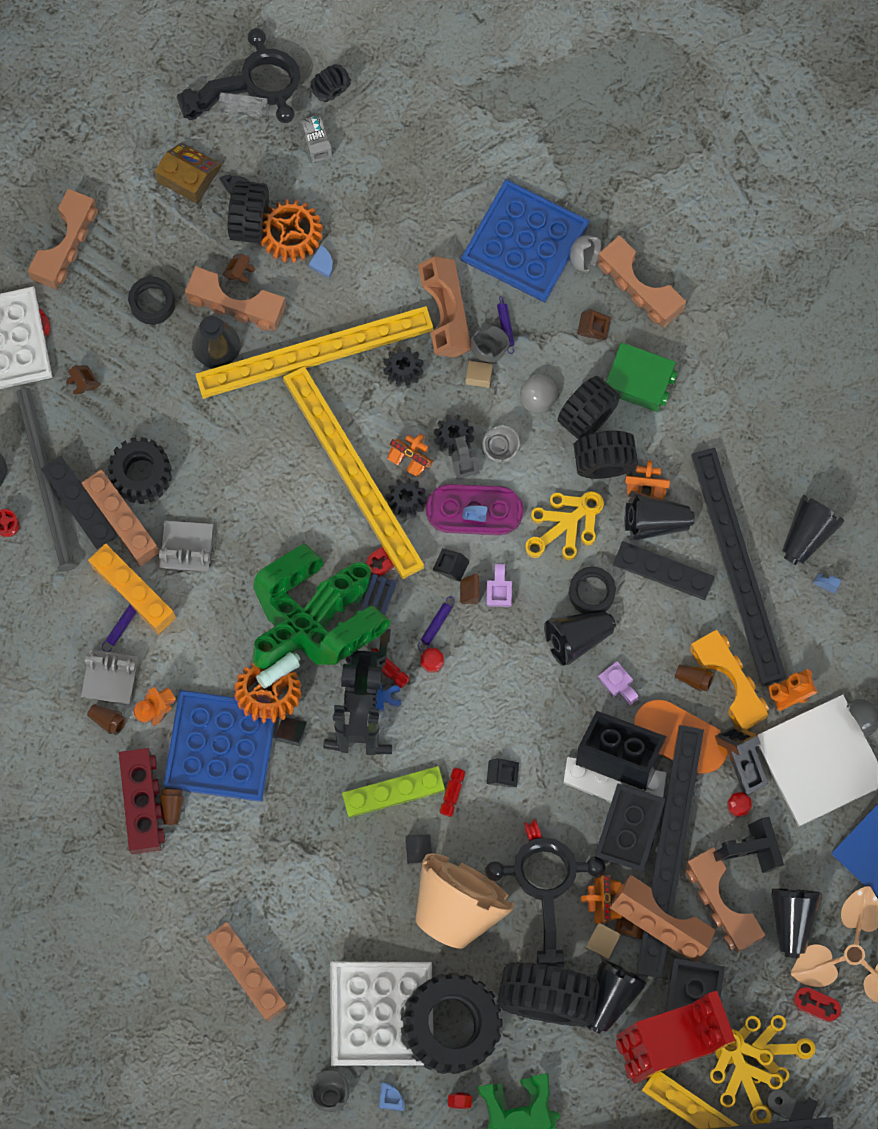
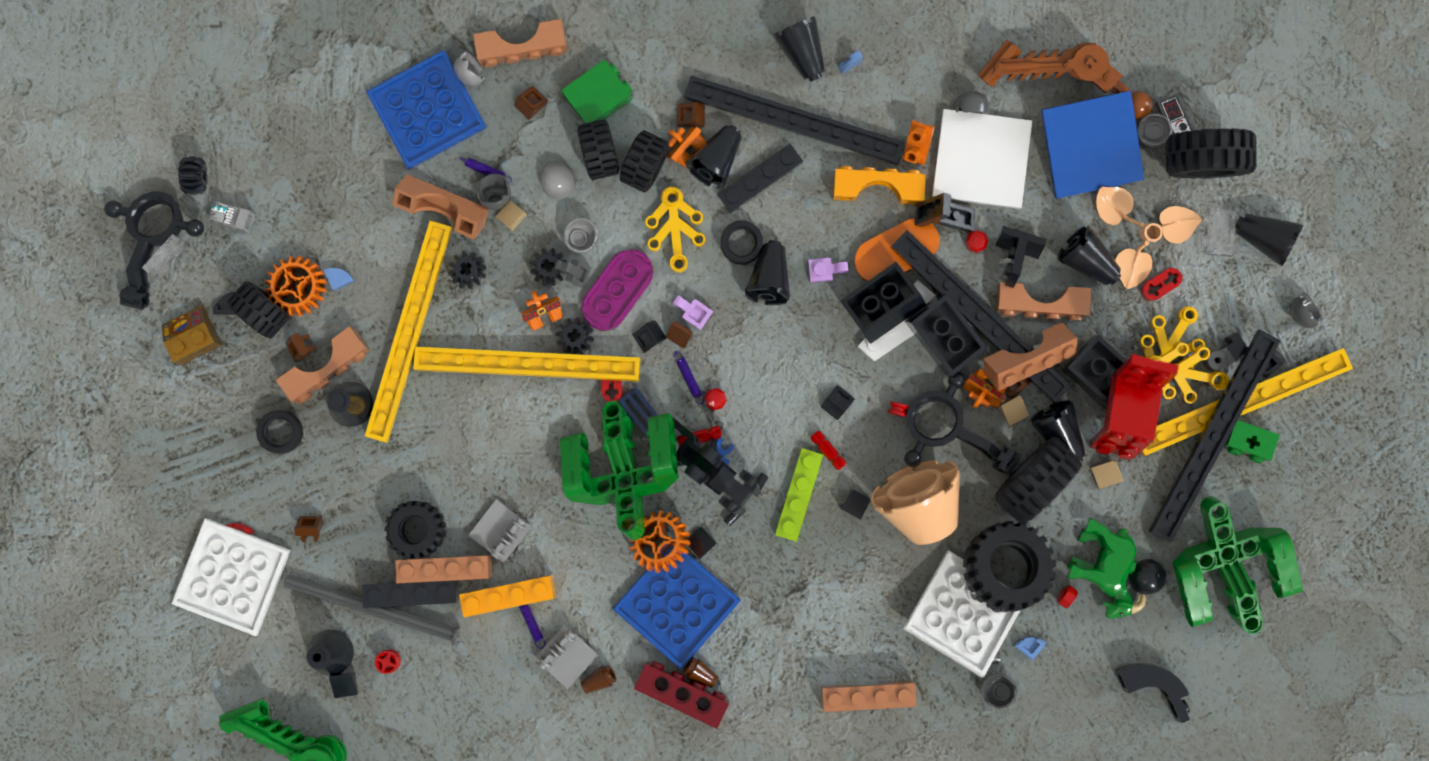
camera: 55 degrees left, 10 degrees up
(51, 265) = (196, 492): nougat arch -> none
(154, 706) = (615, 638): orange hips -> none
(279, 669) = (650, 521): light aqua piece -> none
(475, 513) = (623, 291): medium blue tile -> none
(600, 1066) = (1107, 474): none -> tan slope
(679, 472) = (691, 115): none -> reddish brown slope
(695, 677) = (858, 209): reddish brown cone -> none

